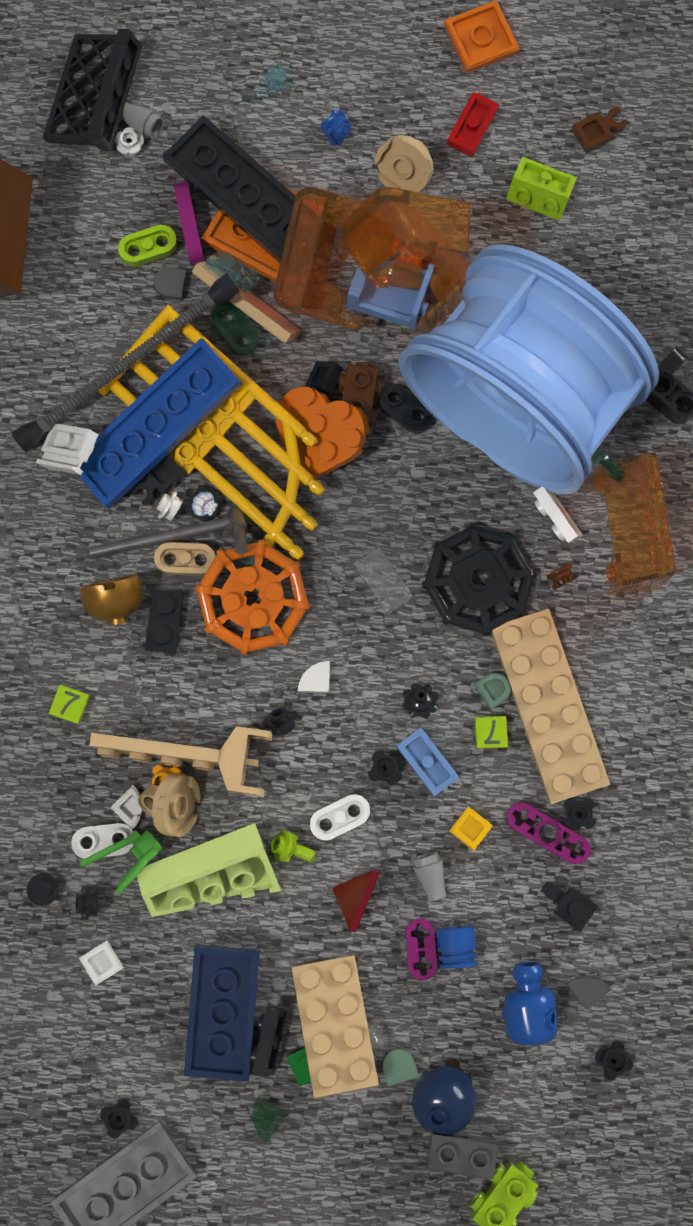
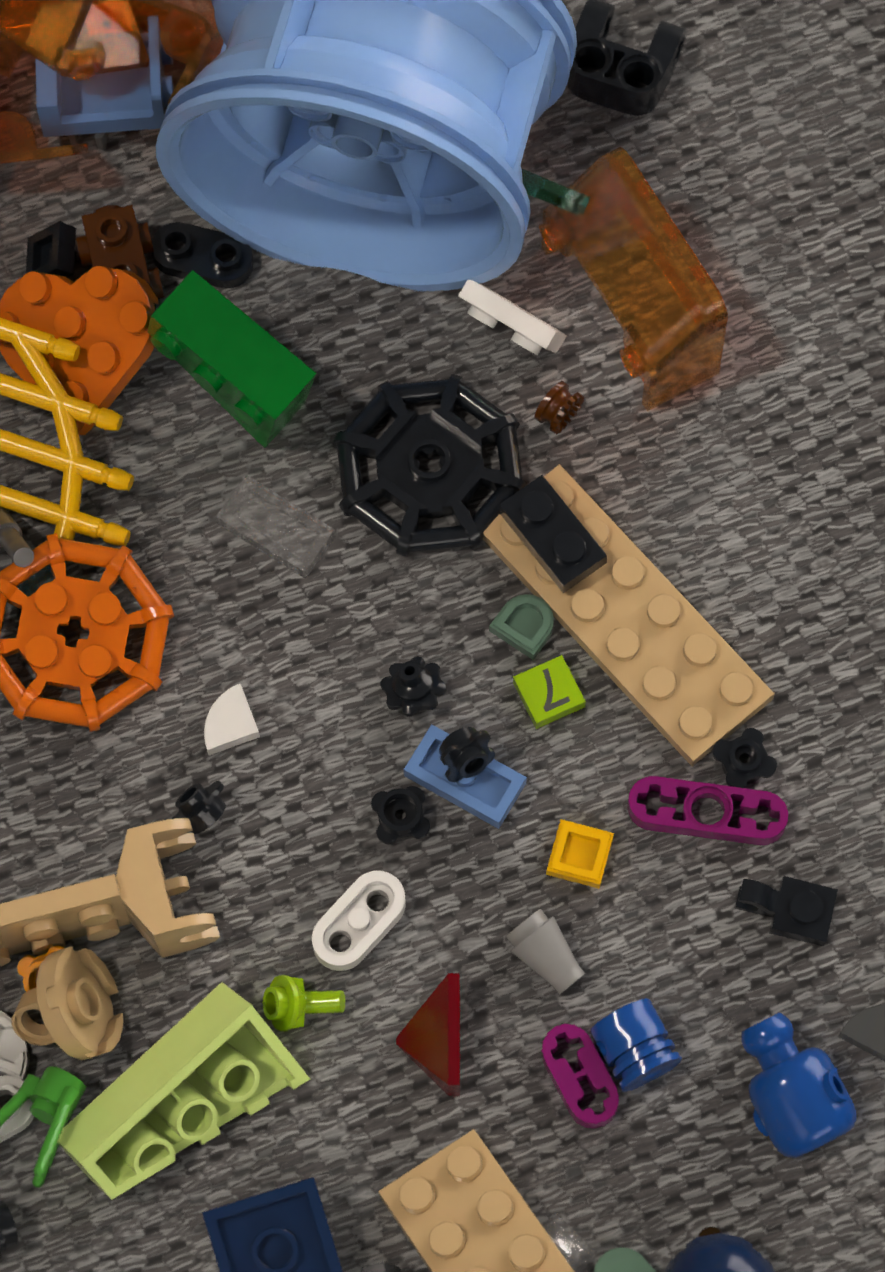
camera: 15 degrees left, 10 degrees down
(395, 481) = (231, 357): none -> green wedge
(432, 754) = (466, 753): none -> black plate
(528, 648) = (552, 534): none -> black plate

